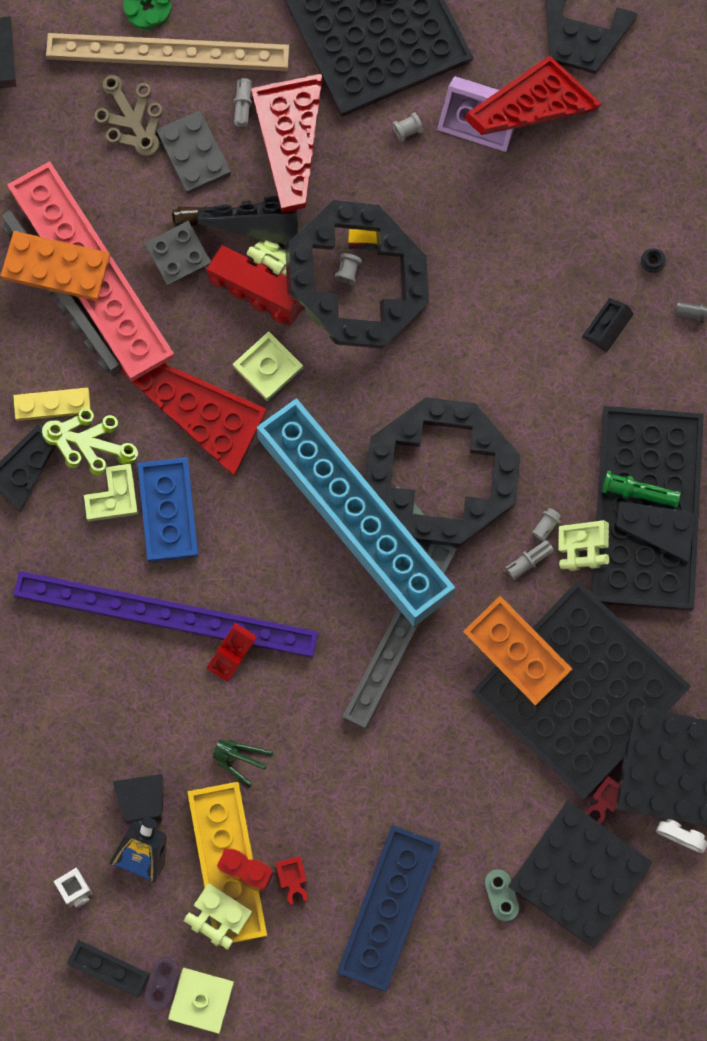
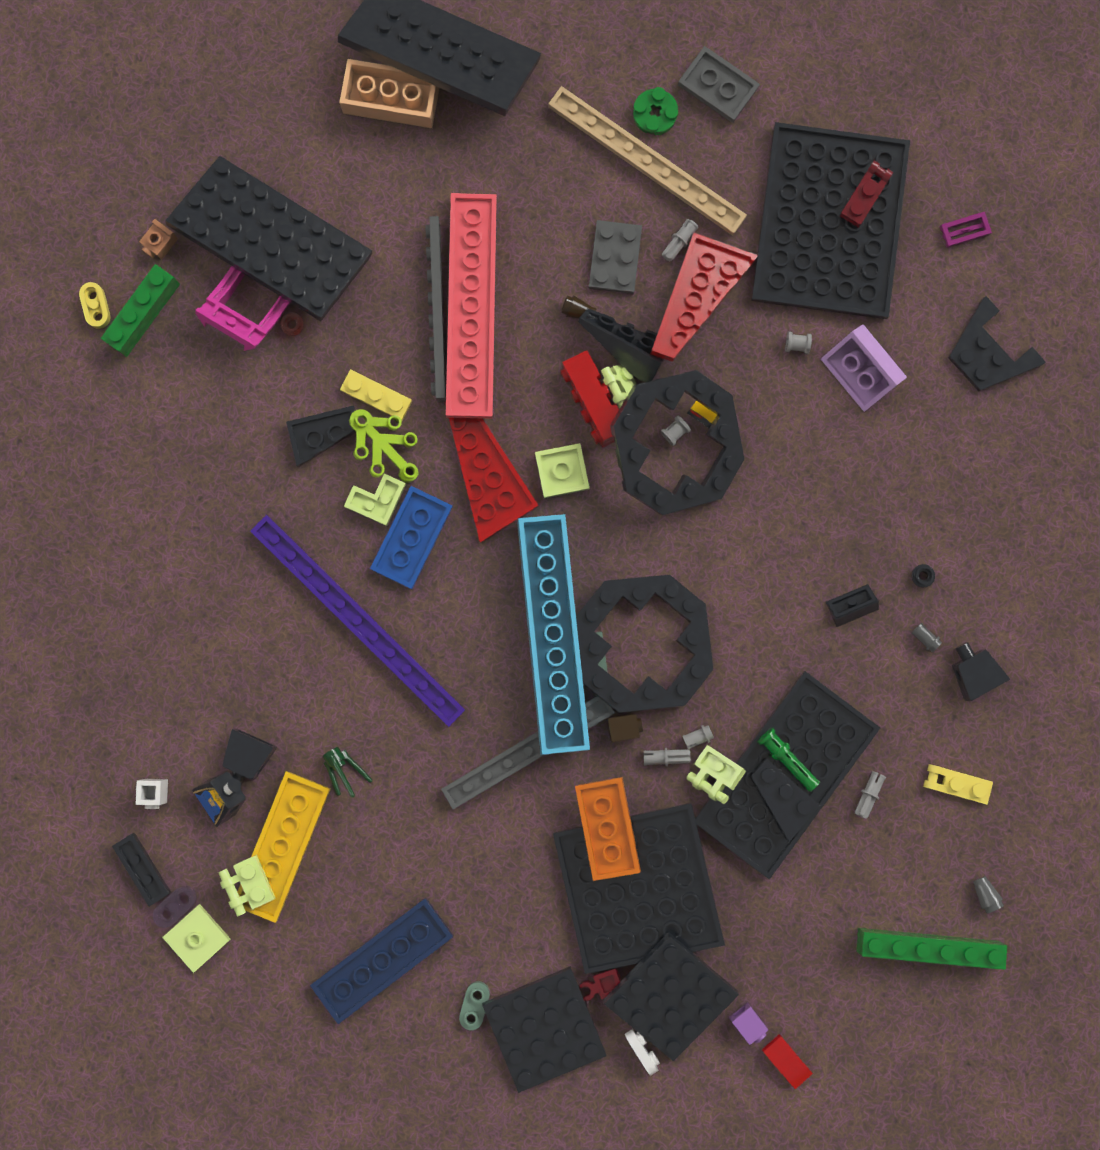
camera: 30 degrees right, 10 degrees up
(55, 266) = (444, 285): orange plate -> none
(132, 118) = (584, 199): dark tan plant -> none
(177, 253) = (549, 334): dark grey hinge -> none
(231, 652) = (388, 683): red slope -> none
(238, 867) = (290, 869): red brick -> none
(292, 875) = (324, 888): red plate -> none
(473, 555) = (624, 727): none -> dark brown brick
(534, 97) = (915, 384): red wing -> none

